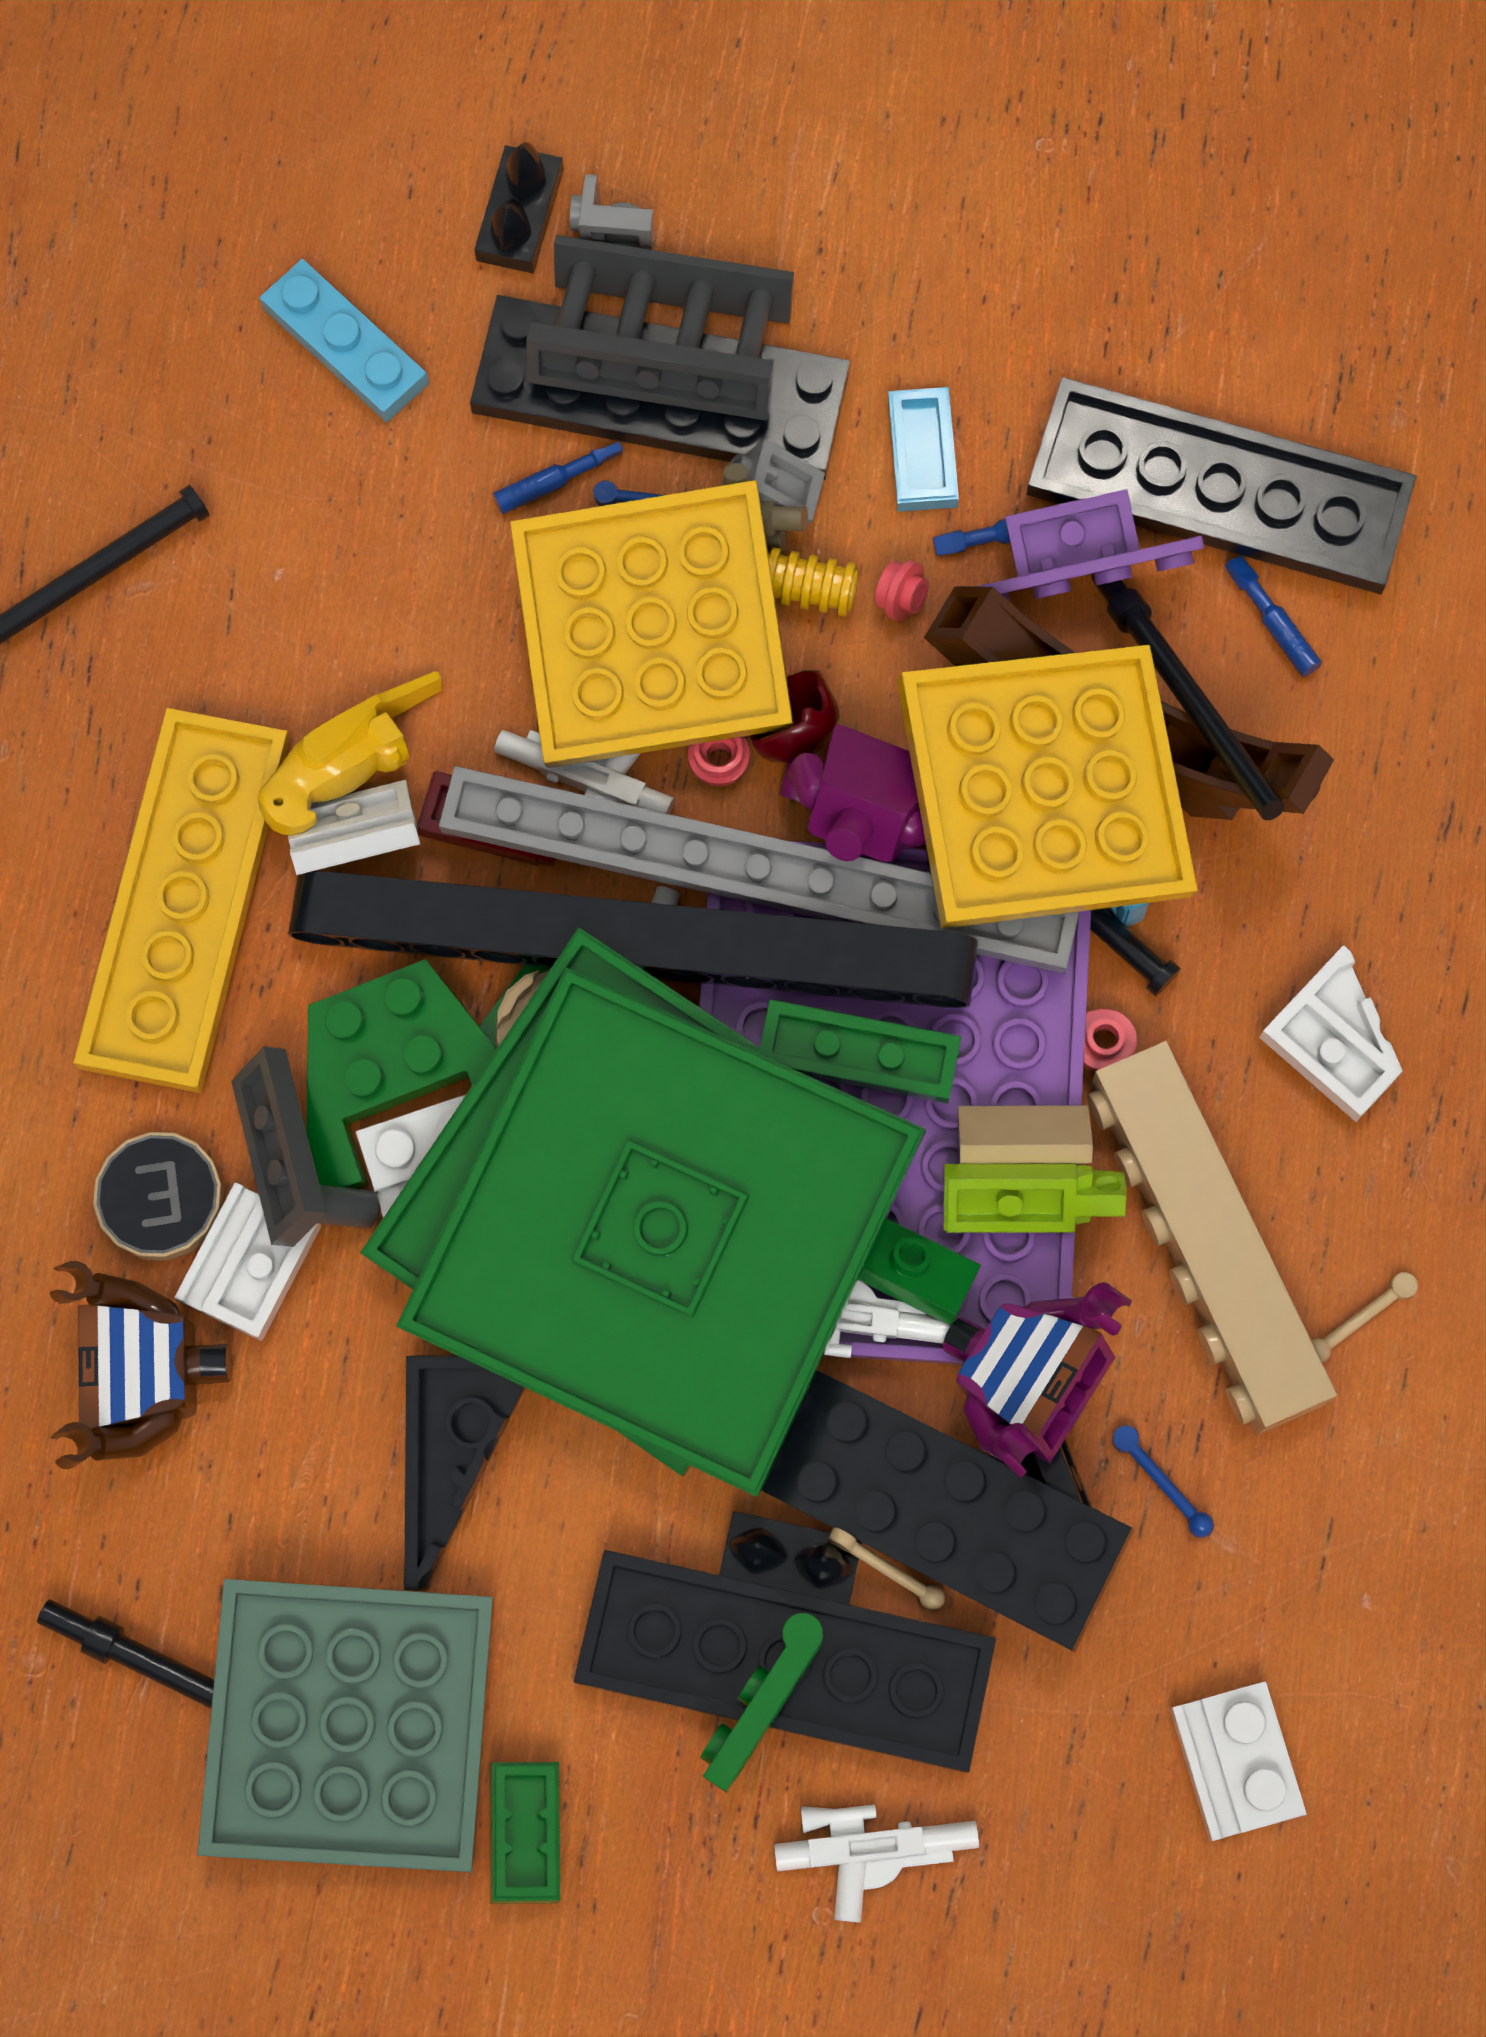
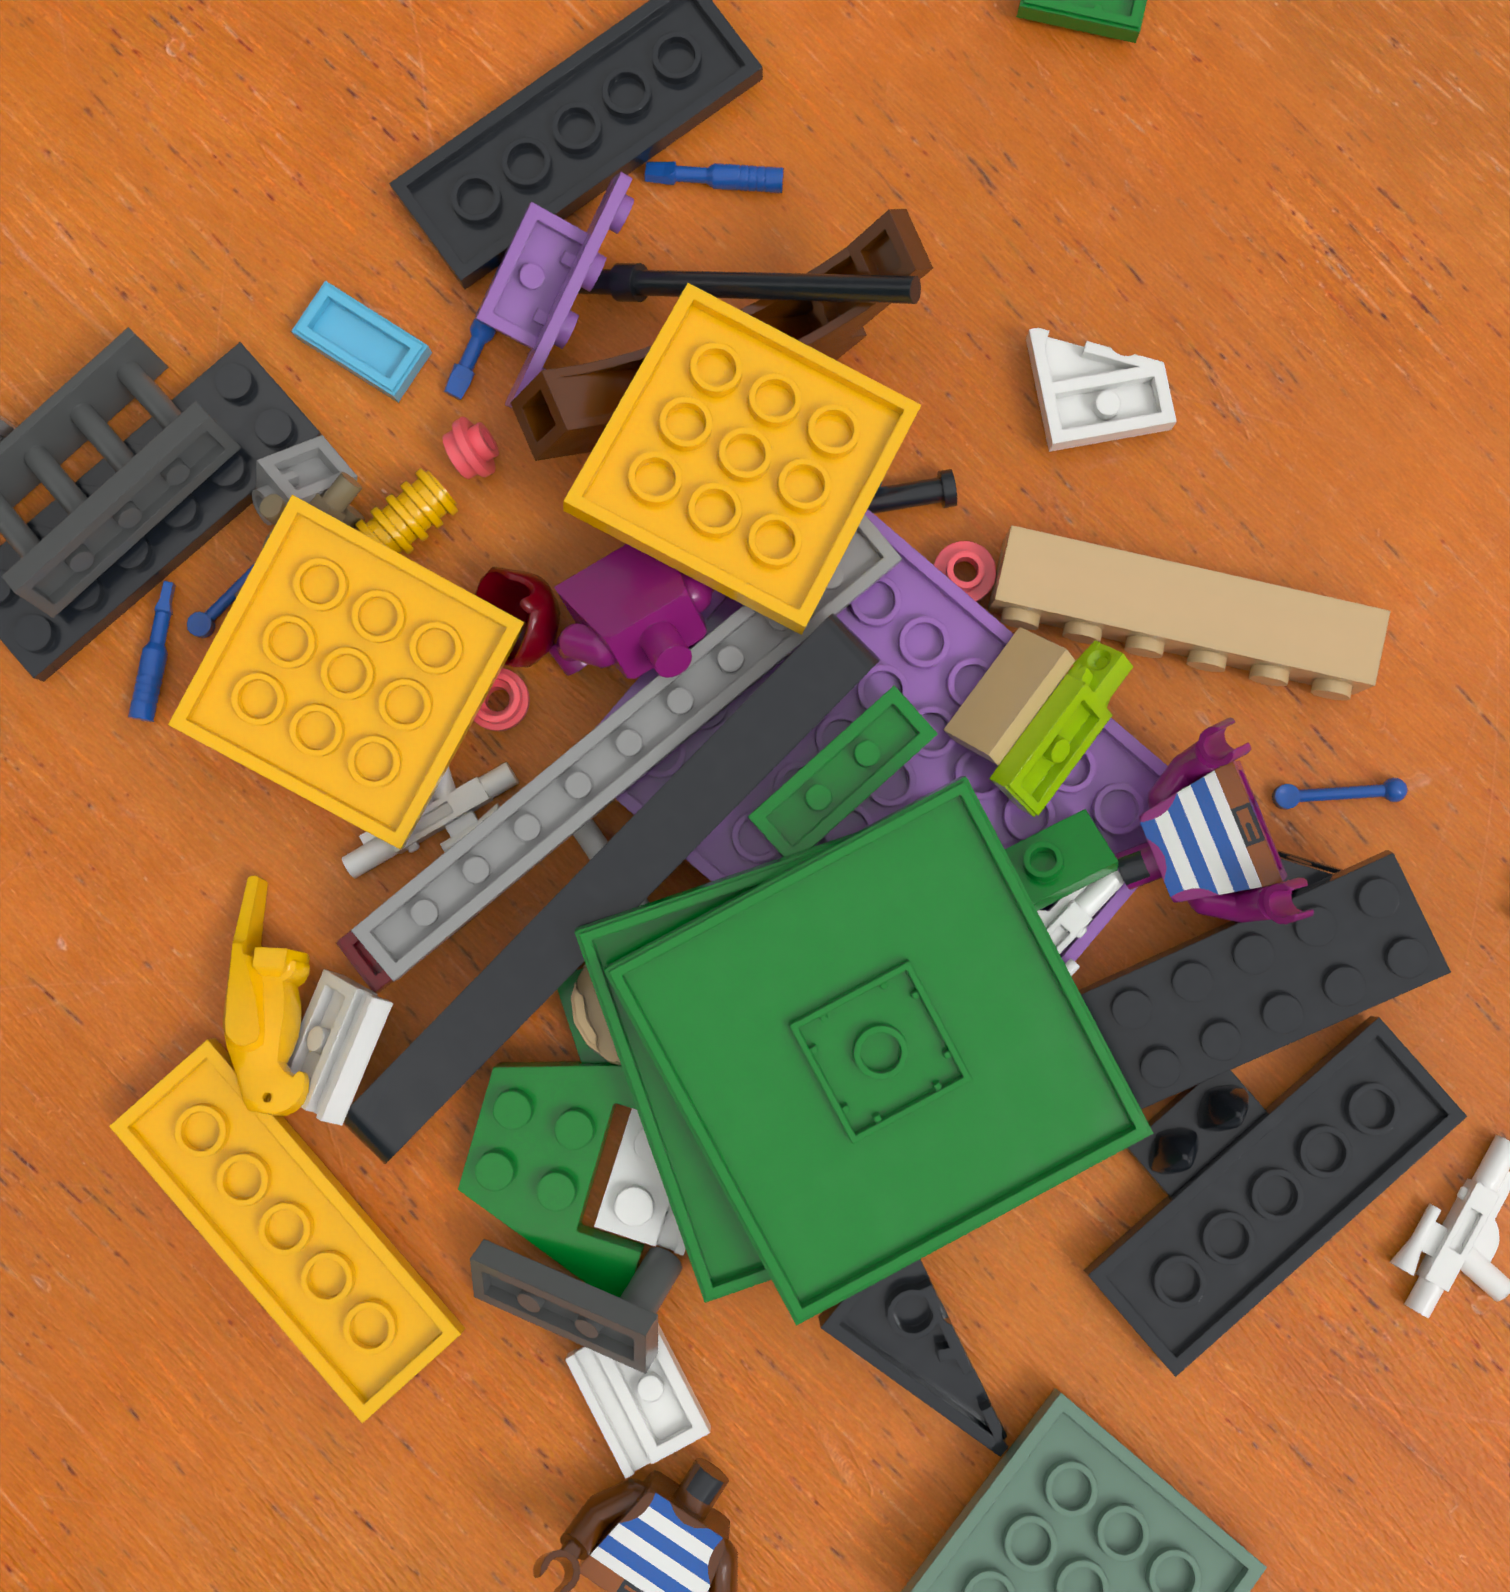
camera: 50 degrees left, 10 degrees up
(158, 1196) = (526, 1426): black tile -> none
(524, 1833) = (1263, 1500): green plate -> none
(764, 1698) = (1311, 1241): green plate -> none
(930, 1596) = (1229, 1078): tan hinge -> none
(1401, 1287) = (1321, 495): tan hinge -> none

